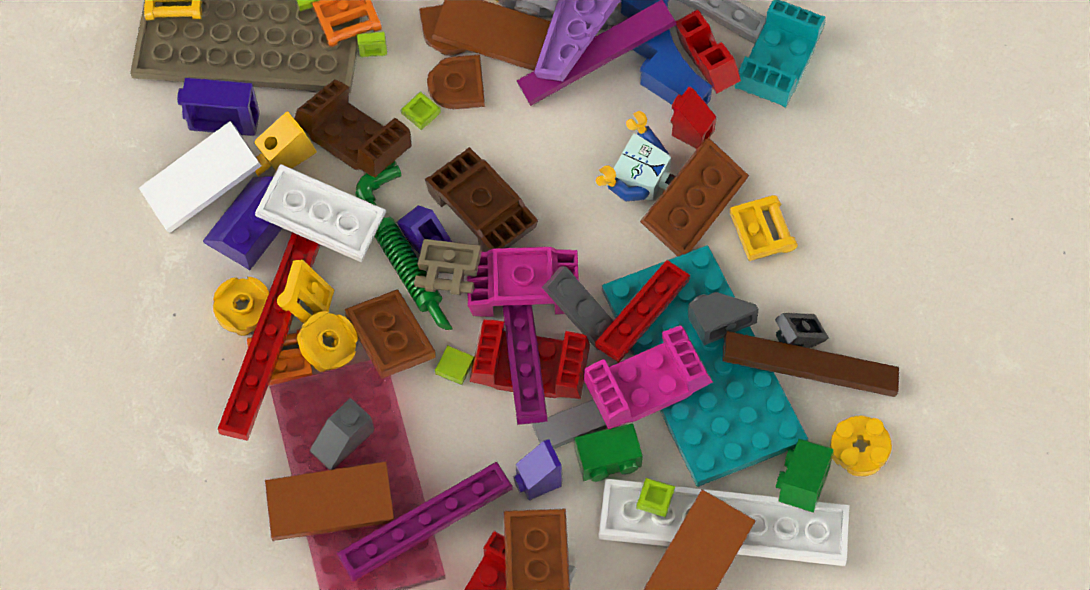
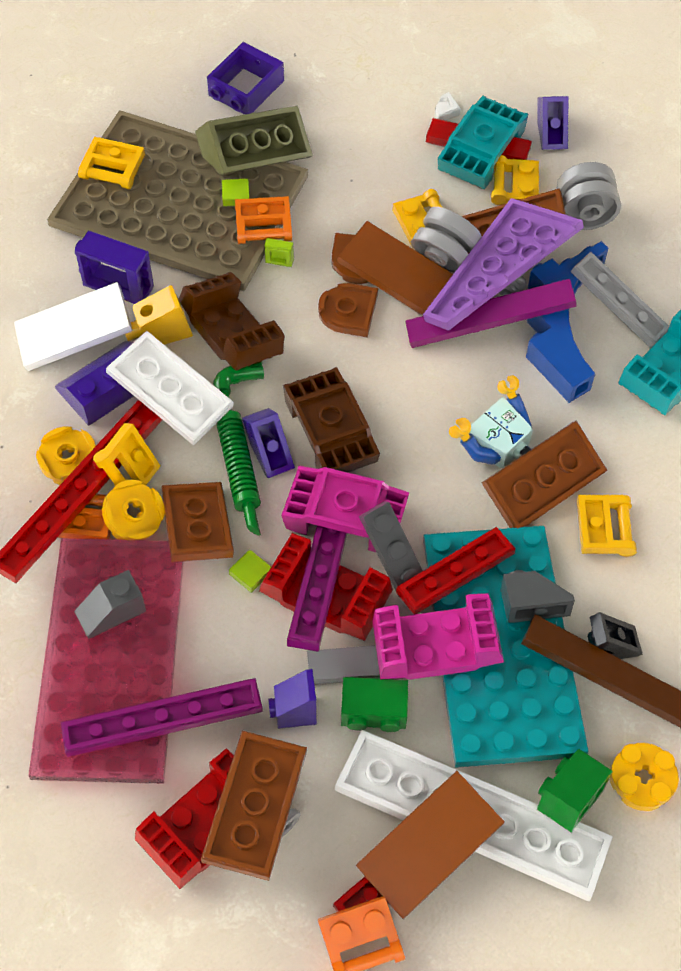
camera: 15 degrees right, 5 degrees down
(329, 501) = (74, 668): dark orange tile -> none
(420, 110) = (304, 324): lime tile -> none
(448, 258) = (276, 463): dark tan plate -> none
(655, 497) = (407, 765): lime tile -> none
(692, 119) = (565, 398): red slope -> none
(710, 58) = (601, 345): red arch -> none

